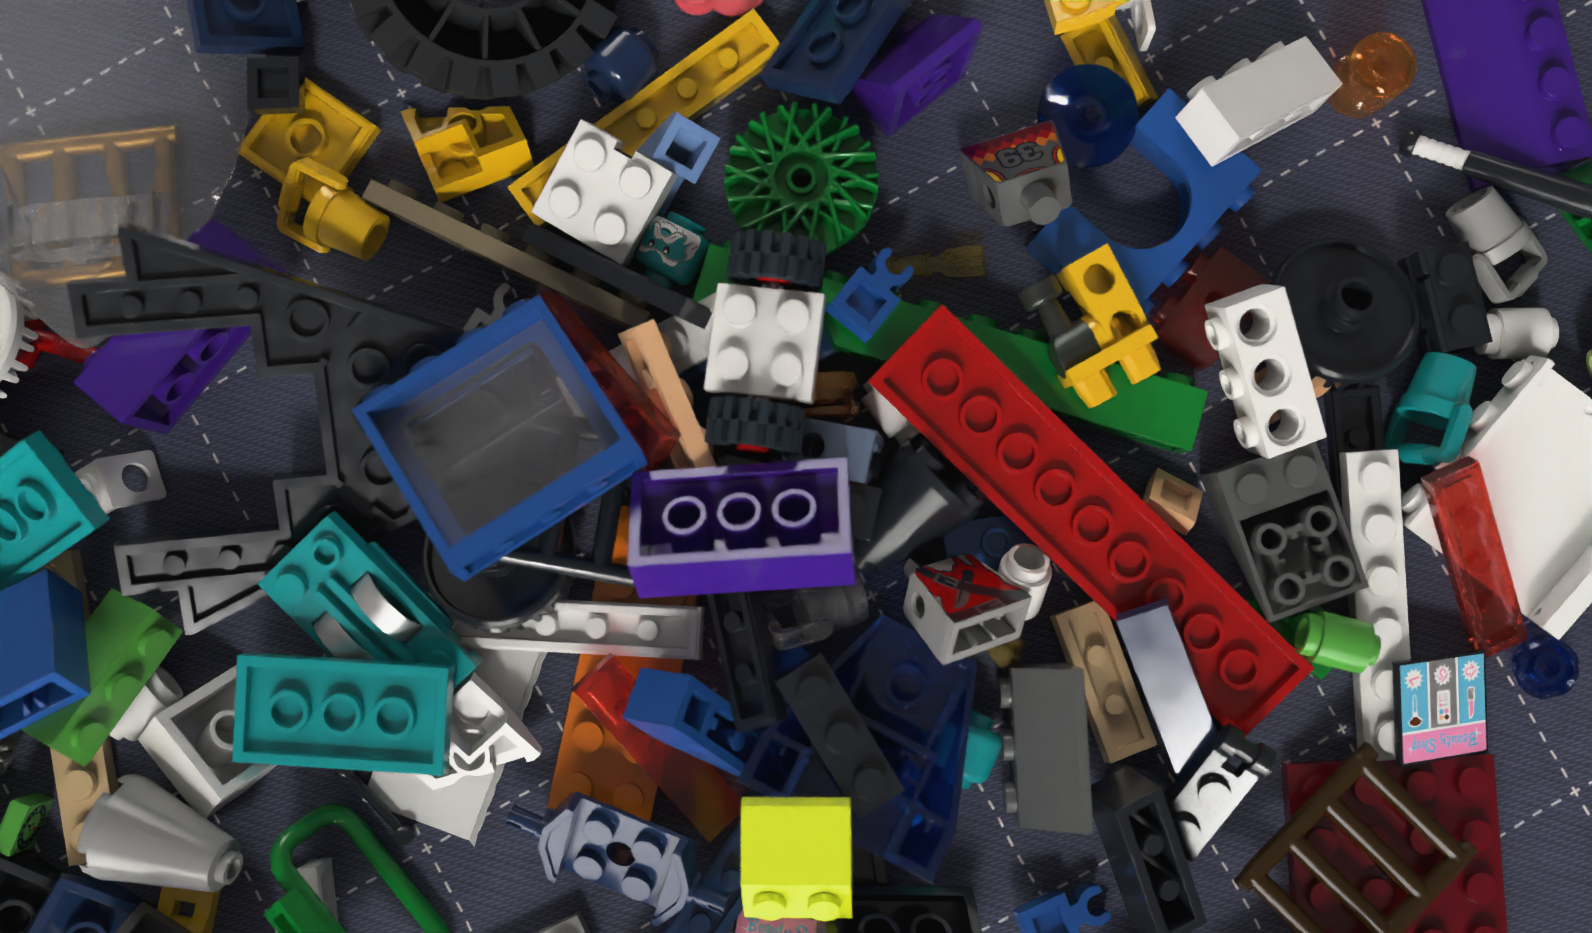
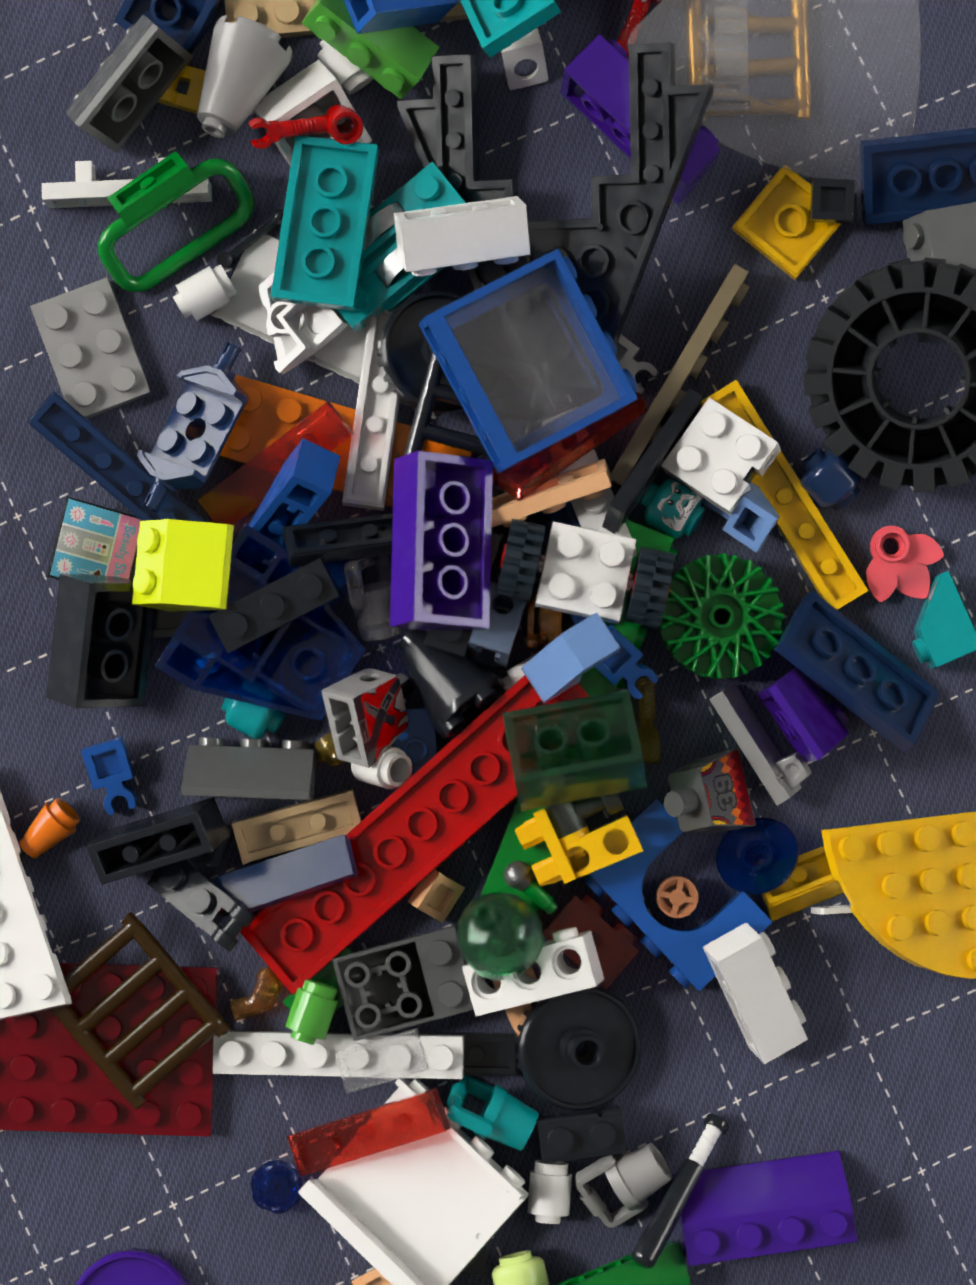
camera: 100 degrees right, 0 degrees up
(226, 786) = (344, 133): none -> red brick
(335, 215) = (721, 242): yellow piece -> none
(345, 535) = (462, 235): none -> white brick
(446, 858) = (204, 292): none -> white brick
(468, 148) = (772, 350): yellow slope -> none
(875, 351) = (569, 656): none -> medium blue slope
(986, 98) = (778, 774): none -> light grey hinge
(991, 336) = (575, 750): none -> clear green slope
(1148, 396) = (520, 877): none -> piece
(1152, 203) = (682, 899): none -> nougat wheel
(1230, 412) = (499, 935): none -> clear green cylinder
(1318, 705) = (262, 998): none -> clear orange arm
(1373, 74) = (772, 1092): clear orange wheel -> none
(1389, 549) = (381, 1060): none -> clear tile
(1440, 707) = (252, 1094): piece -> none

